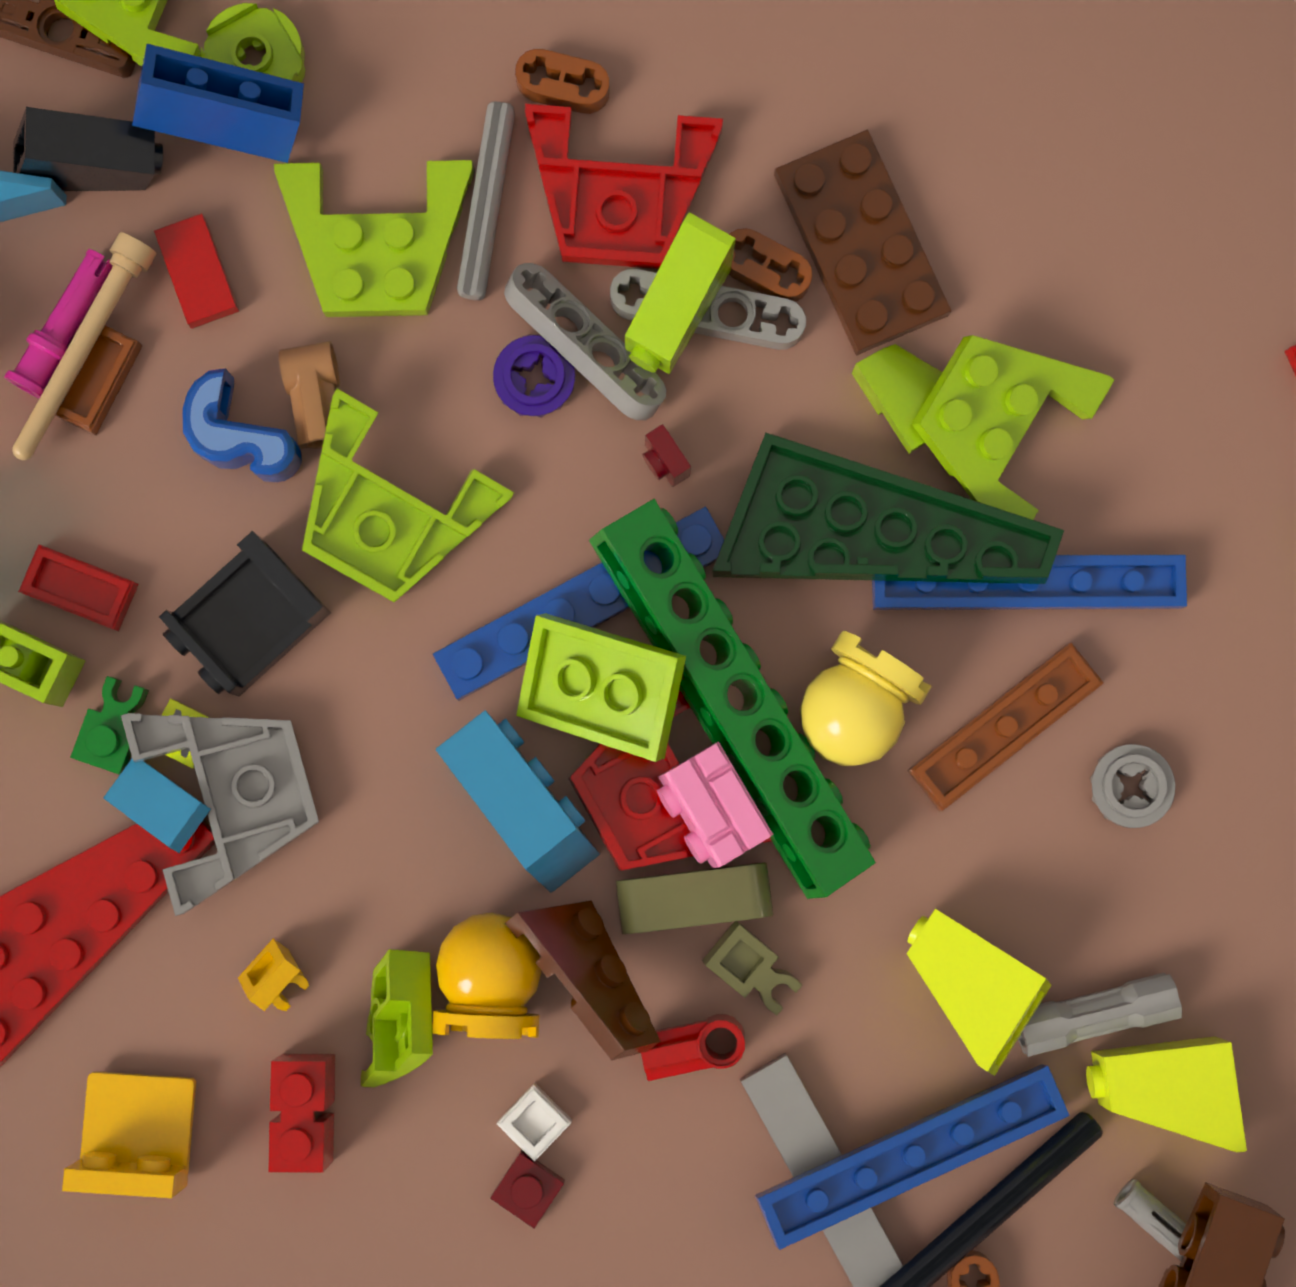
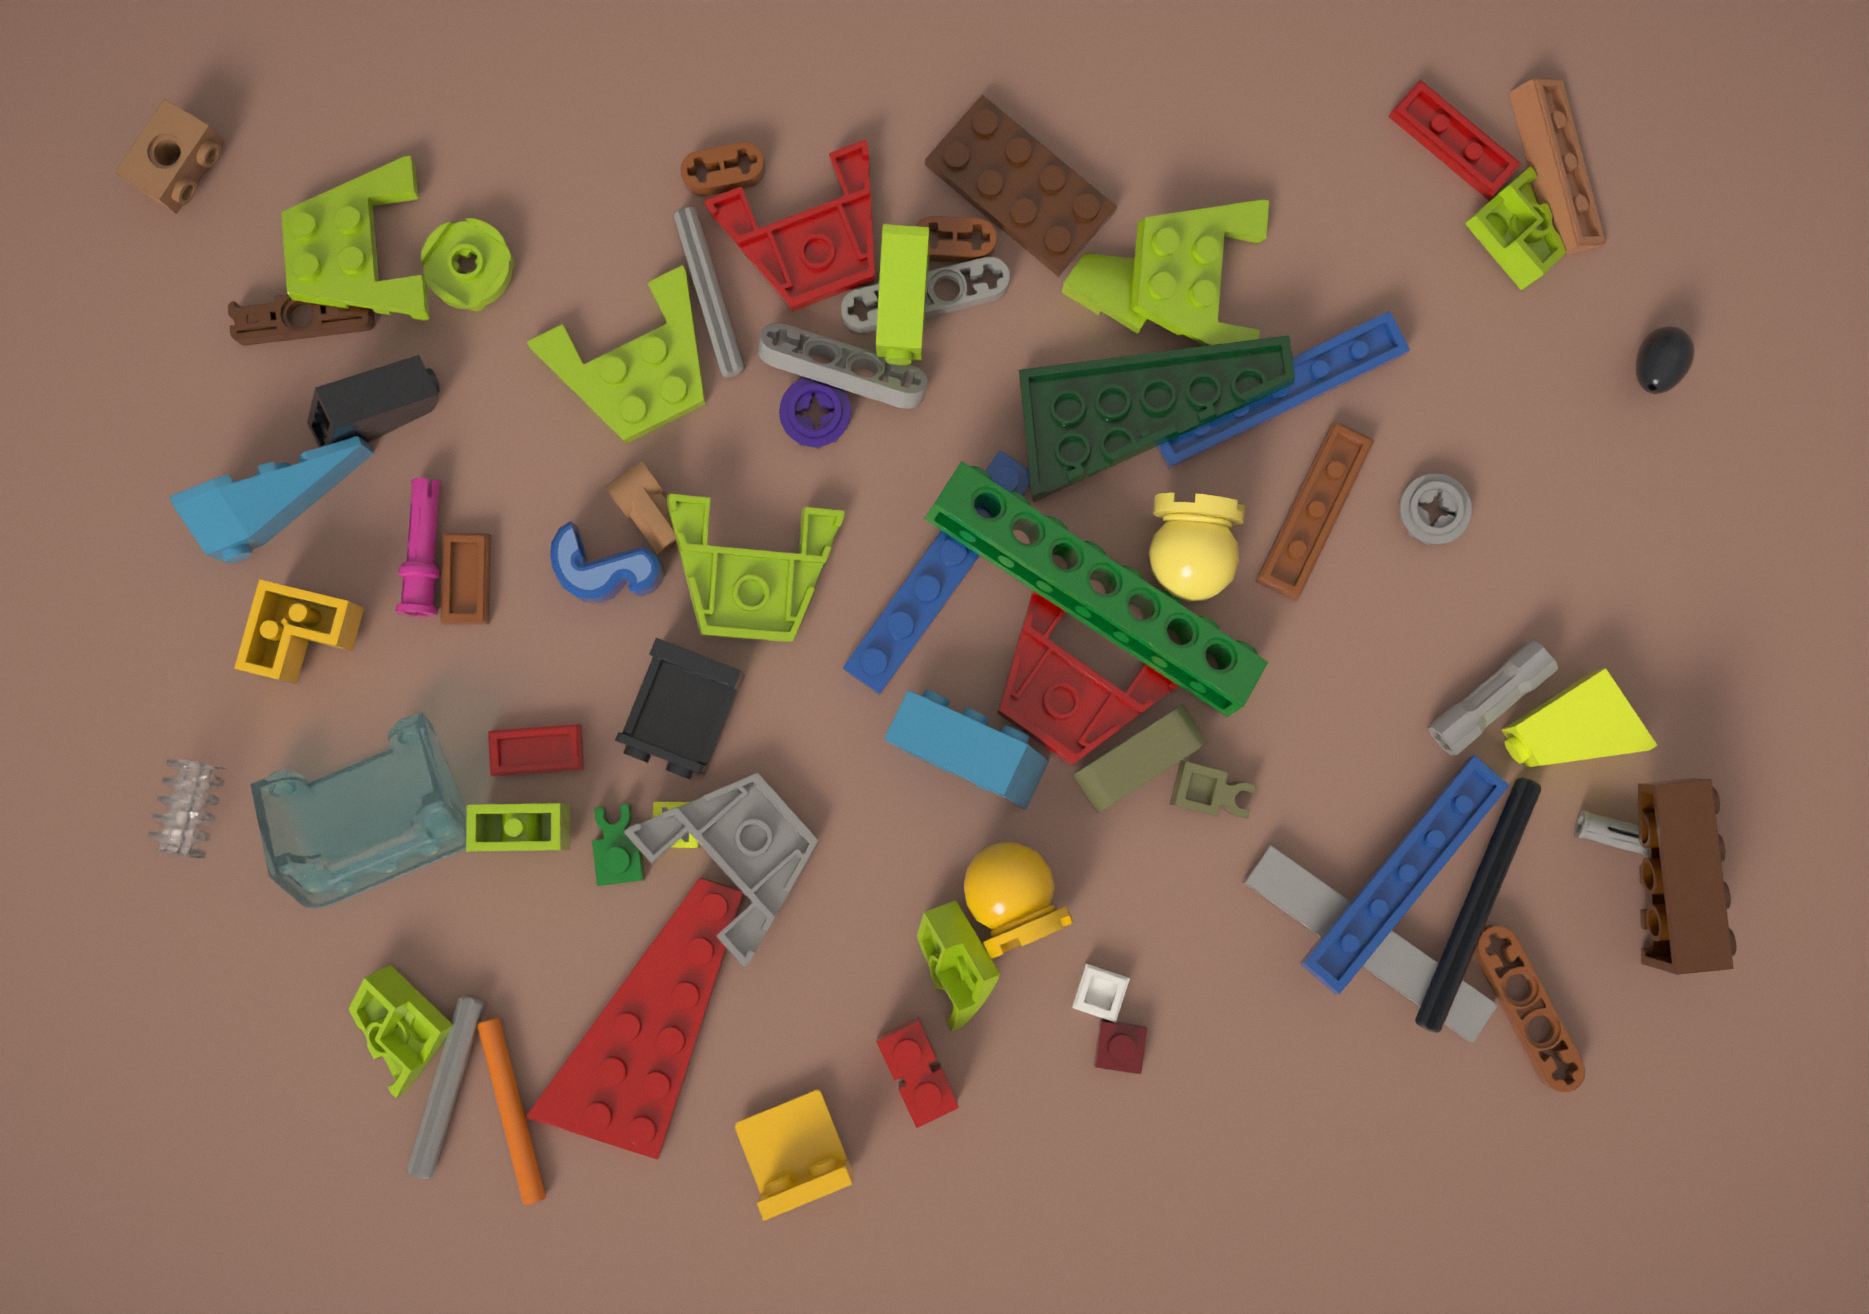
camera: 25 degrees left, 0 degrees up
(128, 260) = (449, 472): tan piece -> none
(157, 804) = (685, 887): dark azure tile -> none
(196, 271) = (506, 455): red tile -> none
(218, 103) = (463, 314): blue brick -> none
(269, 976) = (839, 979): yellow tile -> none
(586, 962) = (1080, 845): reddish brown wing -> none
(600, 686) = (989, 627): lime plate -> none
(665, 457) = (950, 426): dark red plate -> none
(686, 1050) = (1191, 878): red piece -> none
(713, 806) = (1122, 679): bright pink brick -> none
(977, 986) = (1392, 718): neon yellow slope -> none

